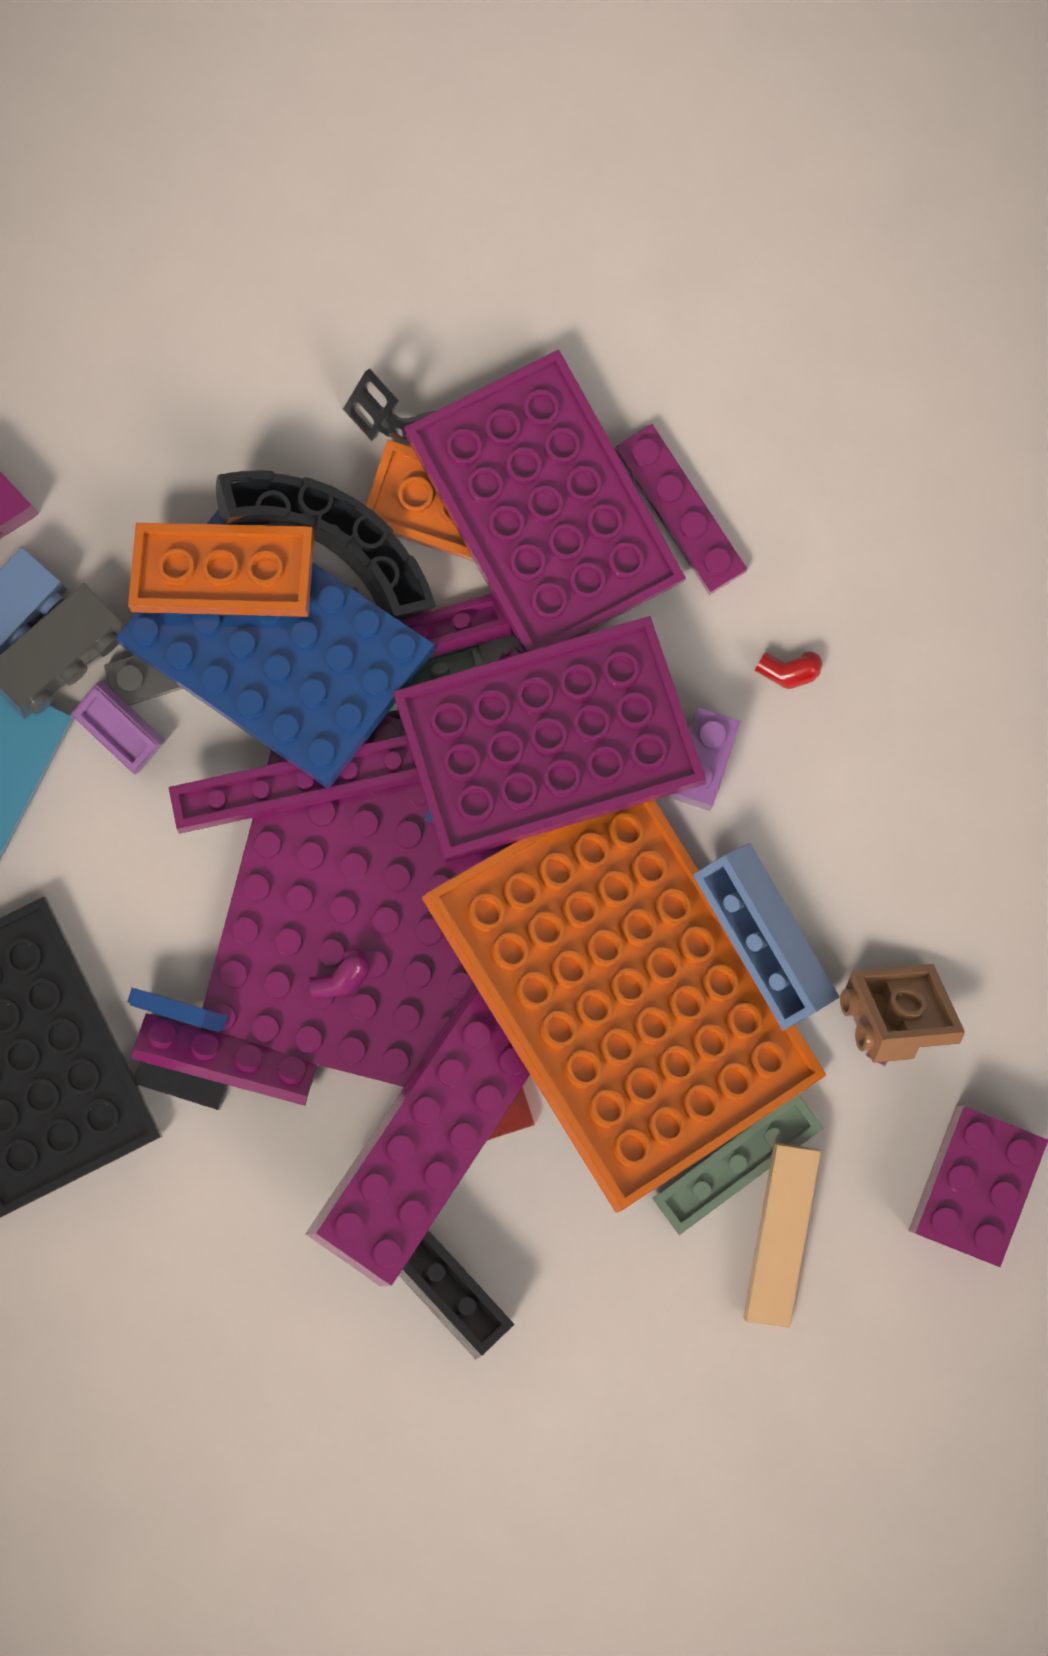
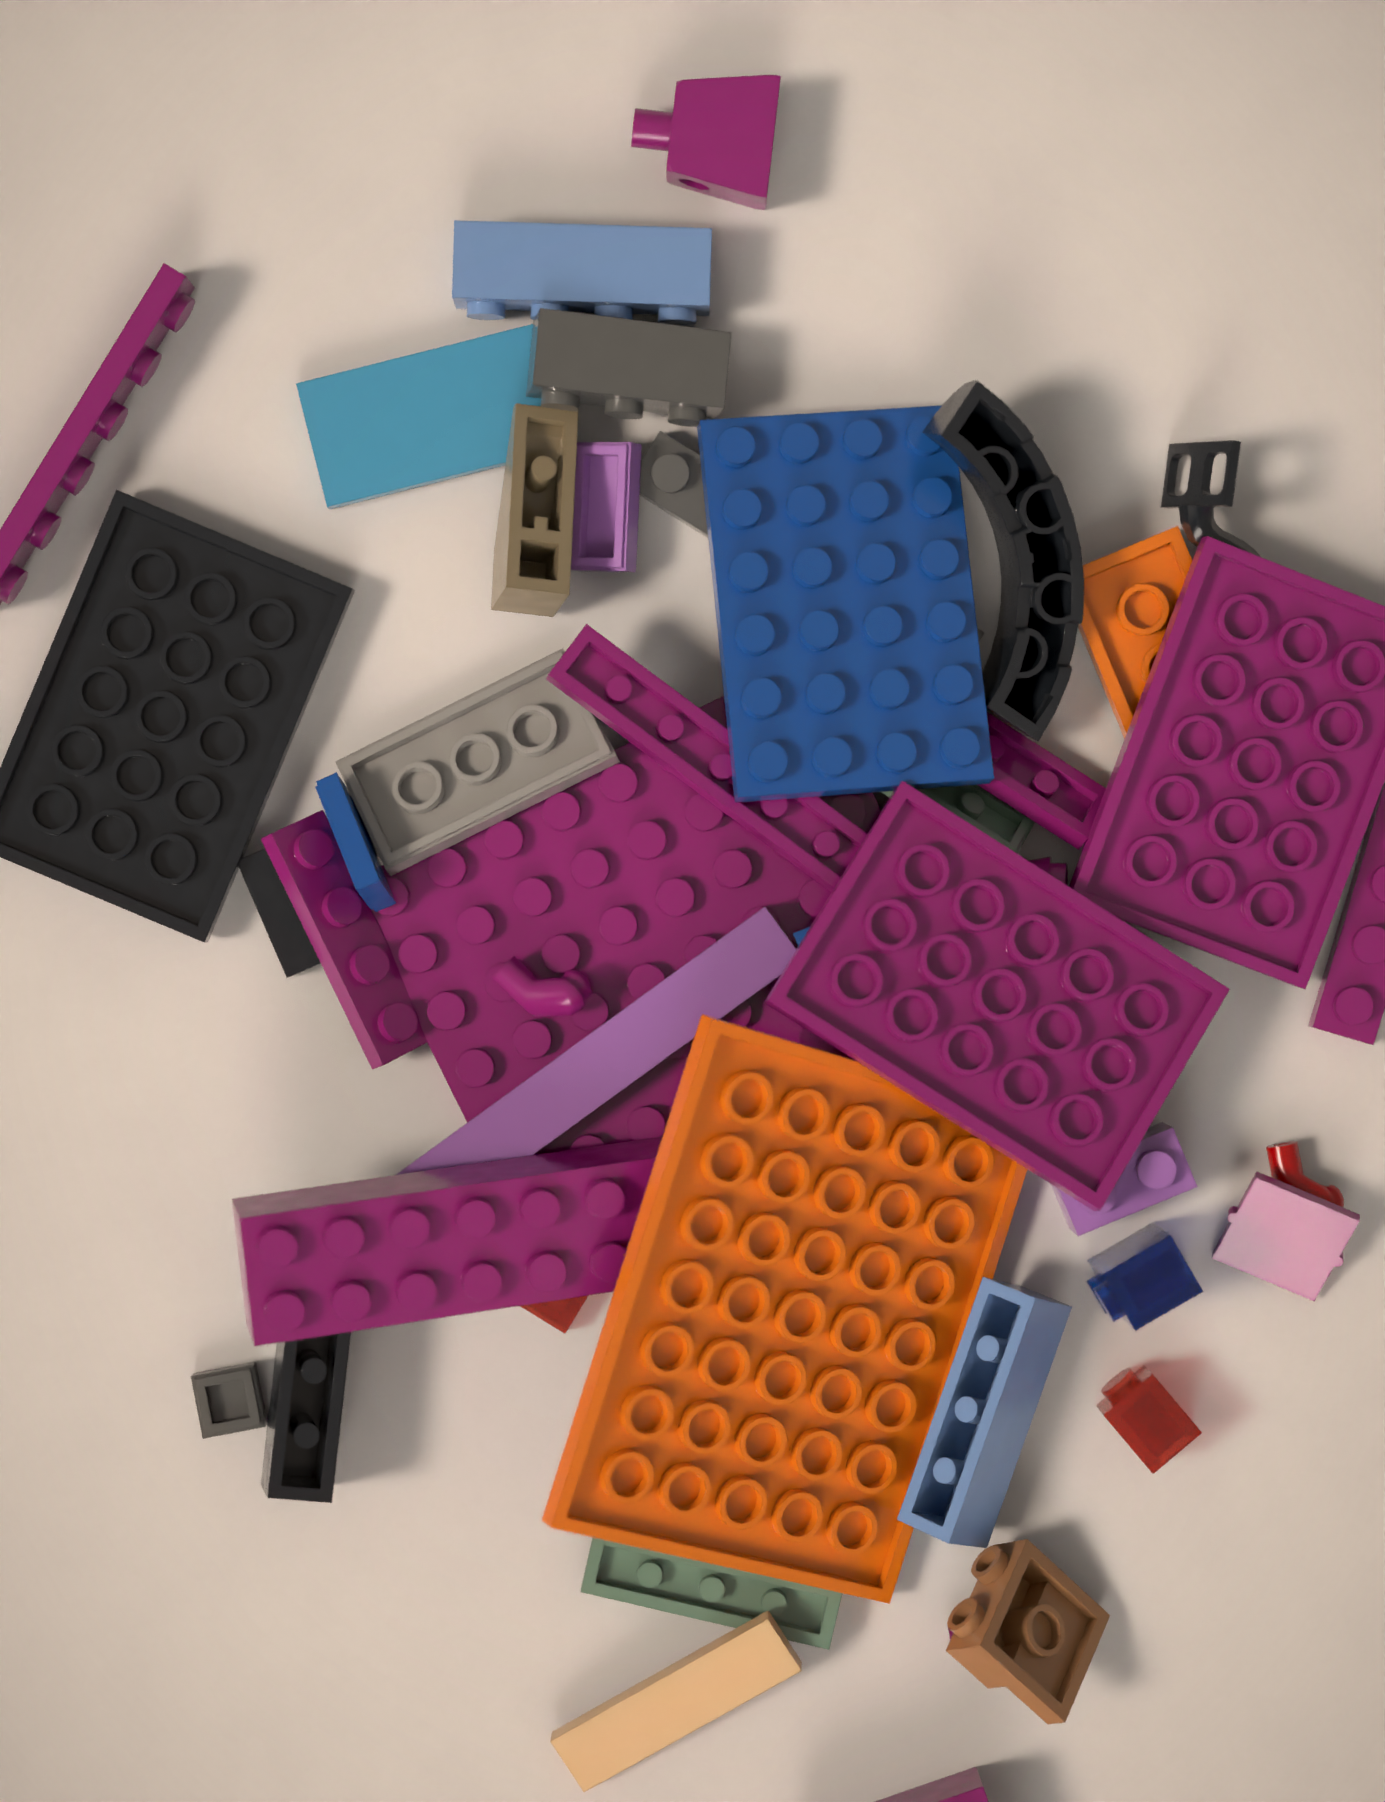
camera: 50 degrees right, 5 degrees up
(89, 766) = (536, 513): none -> dark tan slope
(192, 912) = (473, 765): none -> light grey tile
(221, 569) = (875, 472): orange plate -> none
(407, 963) = (619, 1049): none -> medium lavender tile
(416, 1337) = (229, 1400): none -> dark grey tile
(764, 791) = (1142, 1277): none -> clear blue brick
(809, 699) = (1285, 1236): none -> piece
(842, 853) = (1146, 1417): none -> clear red brick

